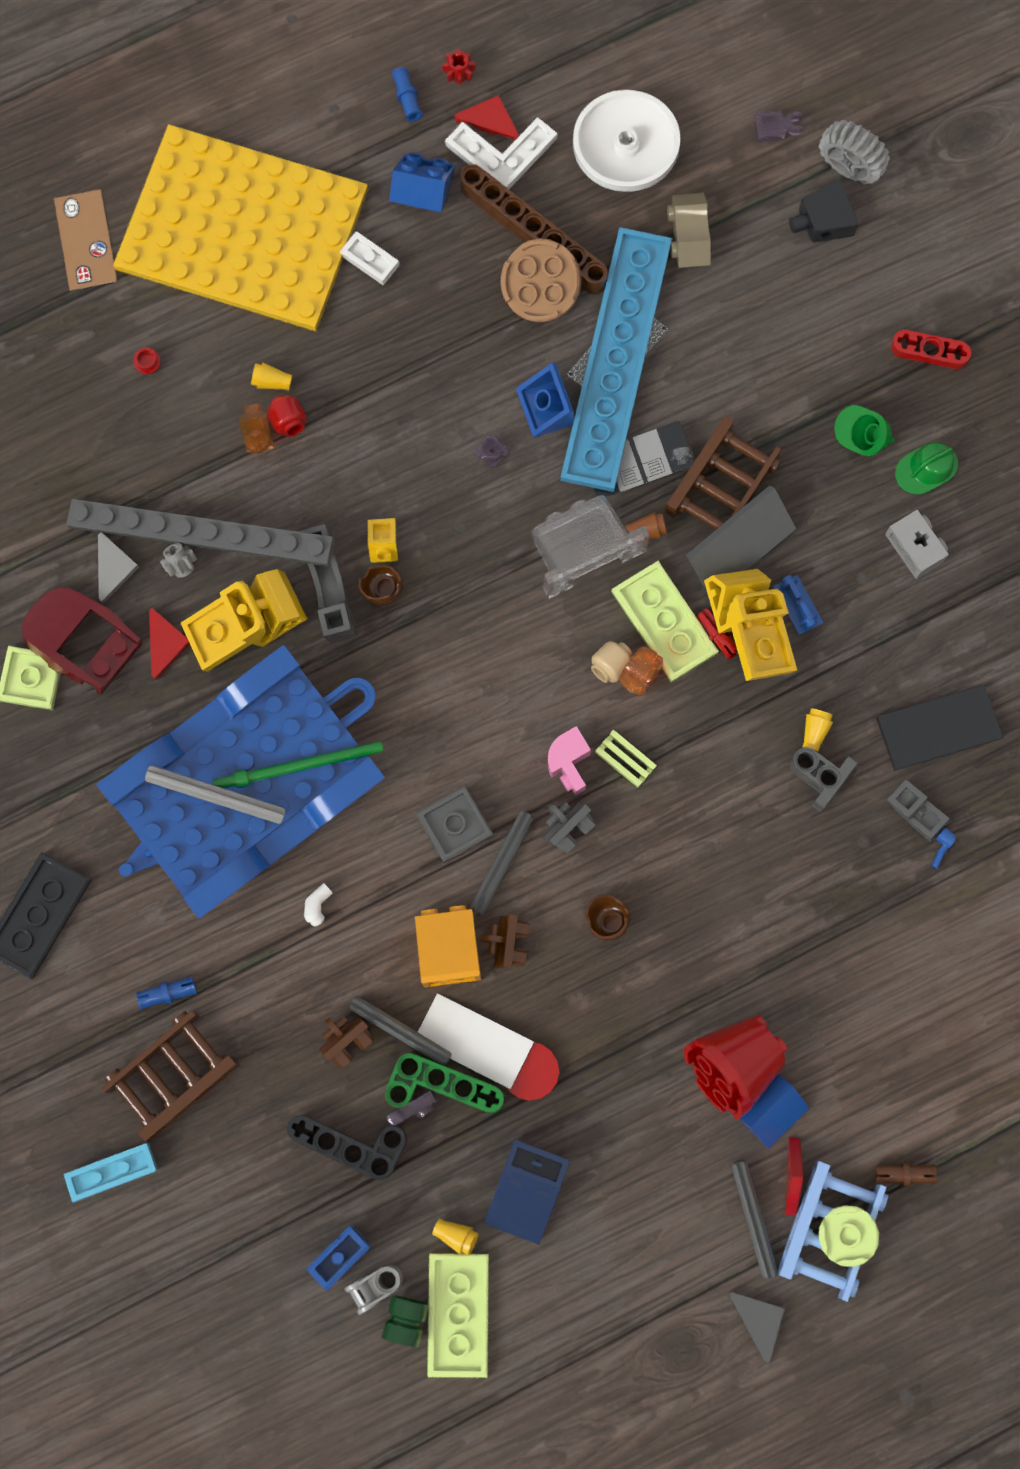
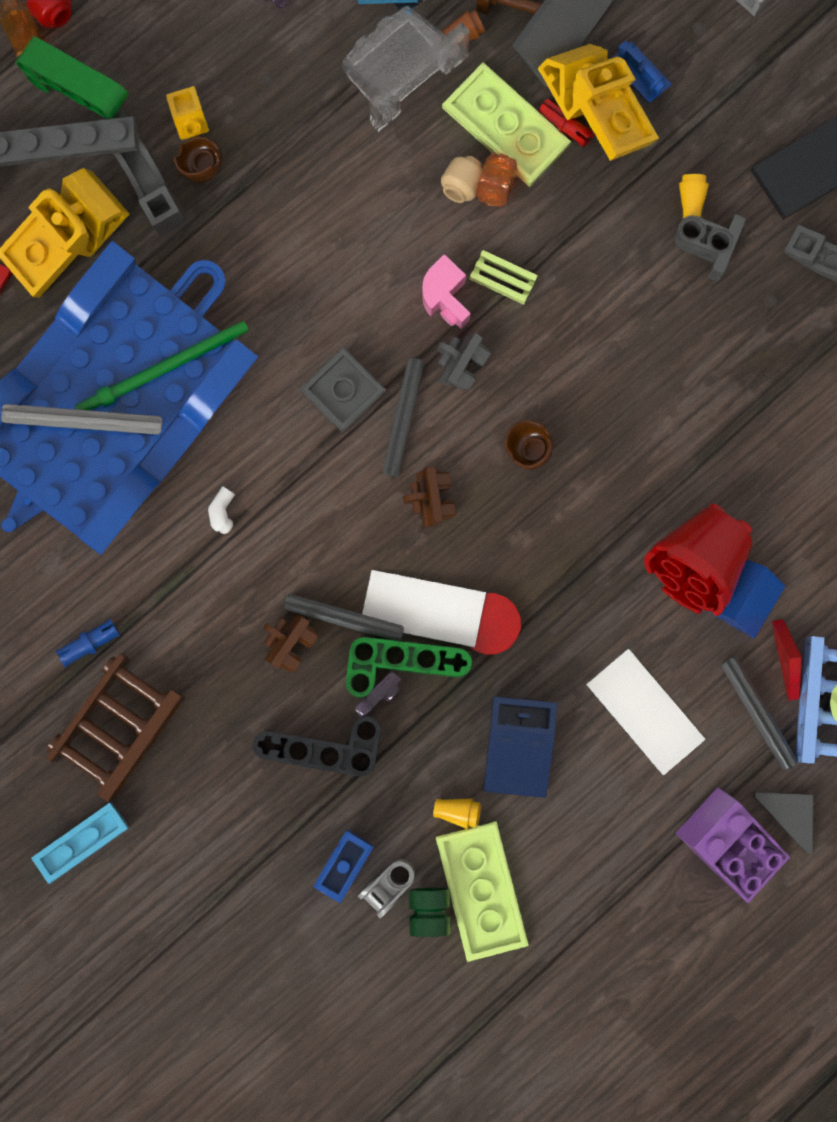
camera: 20 degrees left, 5 degrees up
(277, 478) = (51, 68): none -> green beam
(447, 947) = (371, 518): light orange slope -> none
(651, 1190) = (646, 712): none -> white sticker
(698, 1335) = (733, 844): none -> medium lavender slope

